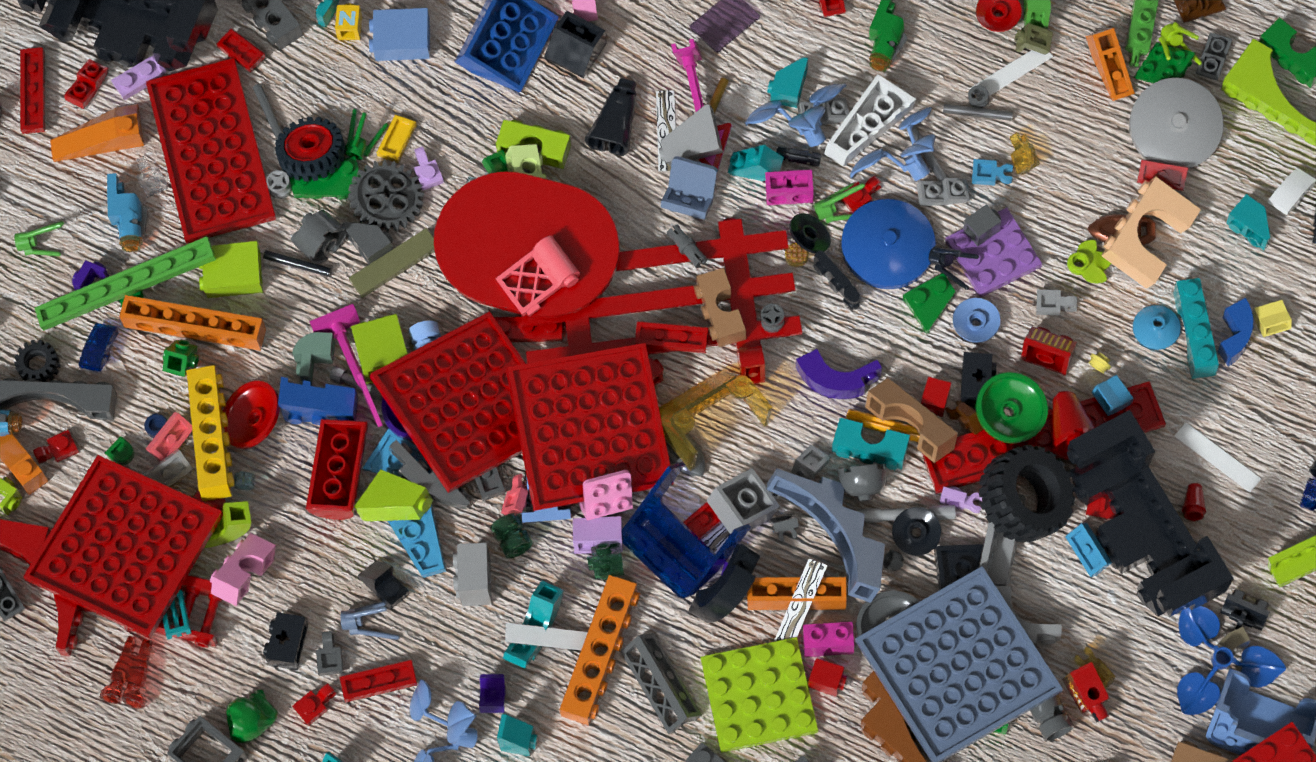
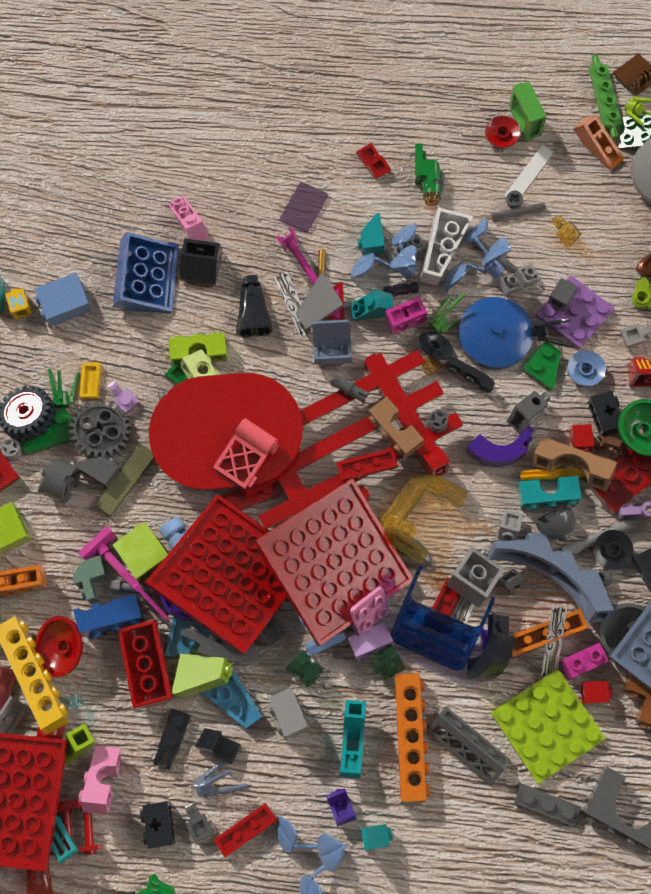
camera: 20 degrees left, 5 degrees up
(297, 263) = (50, 507): black bar -> none
(312, 706) = (199, 870): red plate -> none
(337, 557) = (172, 736): none -> black hinge
(515, 499) = (296, 636): coral plate -> none
(550, 638) = (370, 742): white sticker -> none
(862, 196) = (462, 306): red plate -> none
(886, 343) = (528, 411): none -> dark grey torso
(986, 172) = (546, 254): dark azure plate -> none
(1033, 38) = (536, 143): olive bracket -> none

